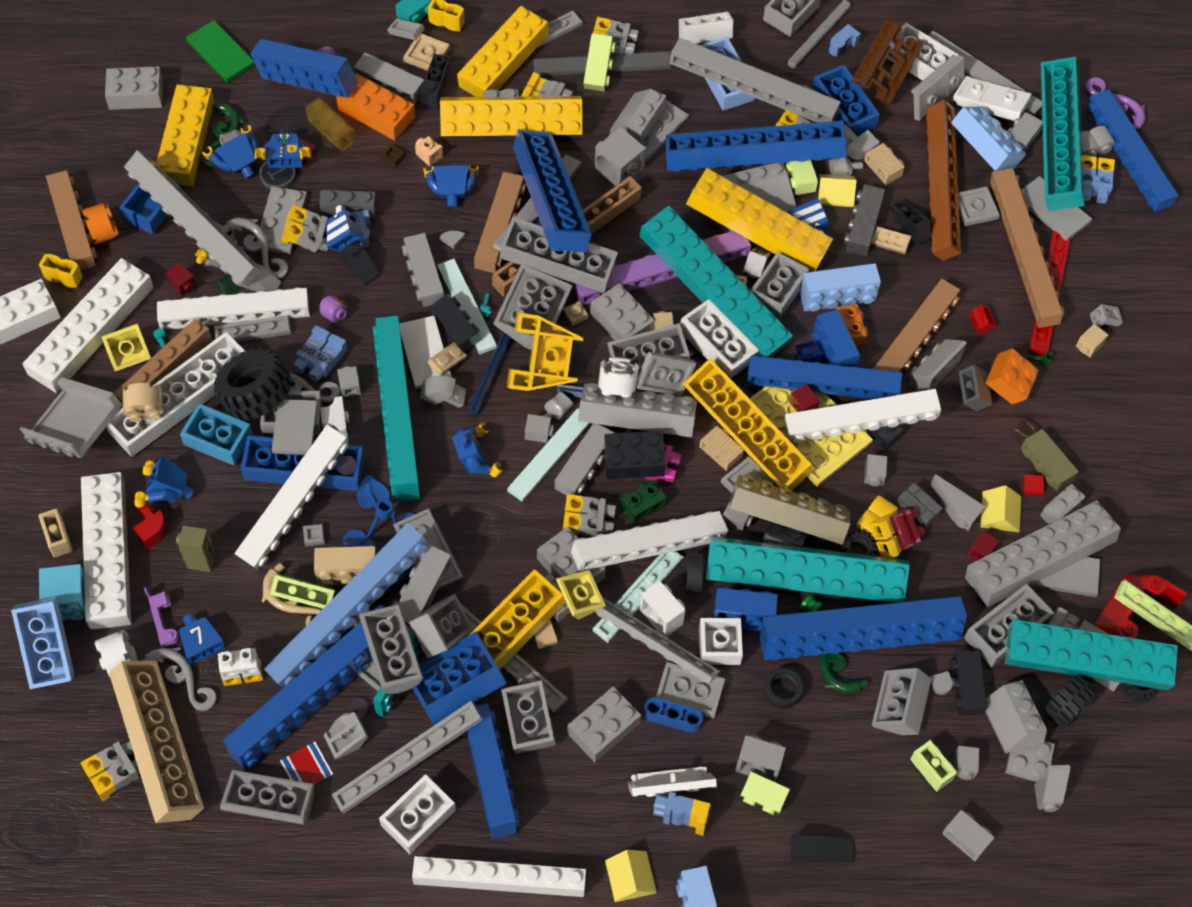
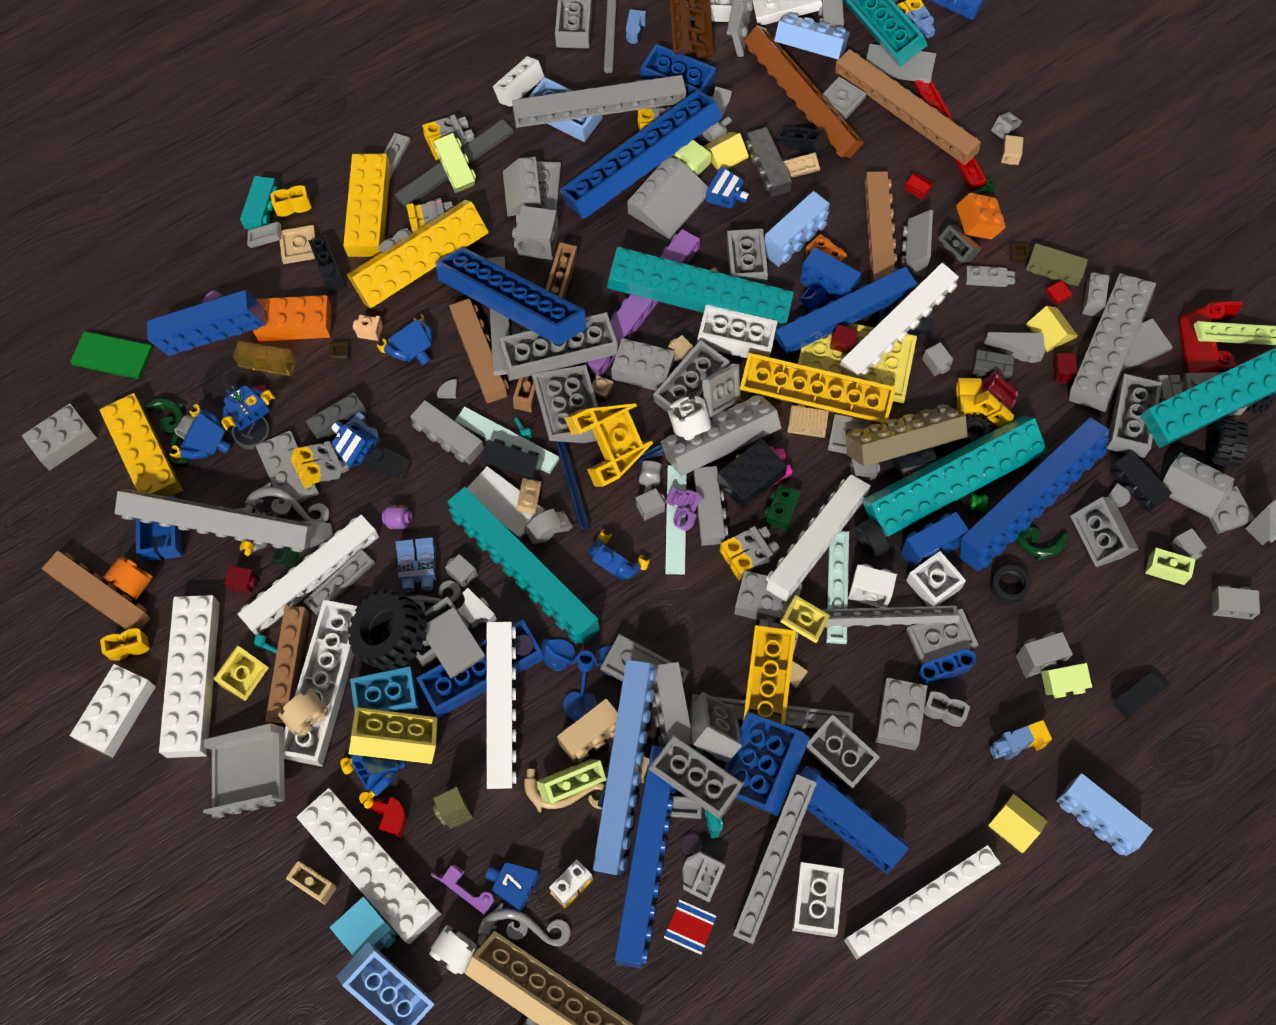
camera: 30 degrees left, 5 degrees up
(196, 465) = (393, 735): none -> light yellow brick
(268, 797) = (684, 978): light grey brick -> none
(313, 535) = (536, 723): light grey tile -> none
(390, 77) = (285, 284): light grey brick -> none
(566, 445) = (687, 502): none -> medium lavender piece
(640, 742) = (950, 711): none -> light grey brick
(672, 780) = (991, 723): white container -> none
(757, 262) = (713, 249): light grey slope -> none
(758, 220) = (691, 214): yellow brick -> none
(884, 163) = (746, 106): tan brick -> none
(981, 432) = (989, 276): none -> light grey hinge

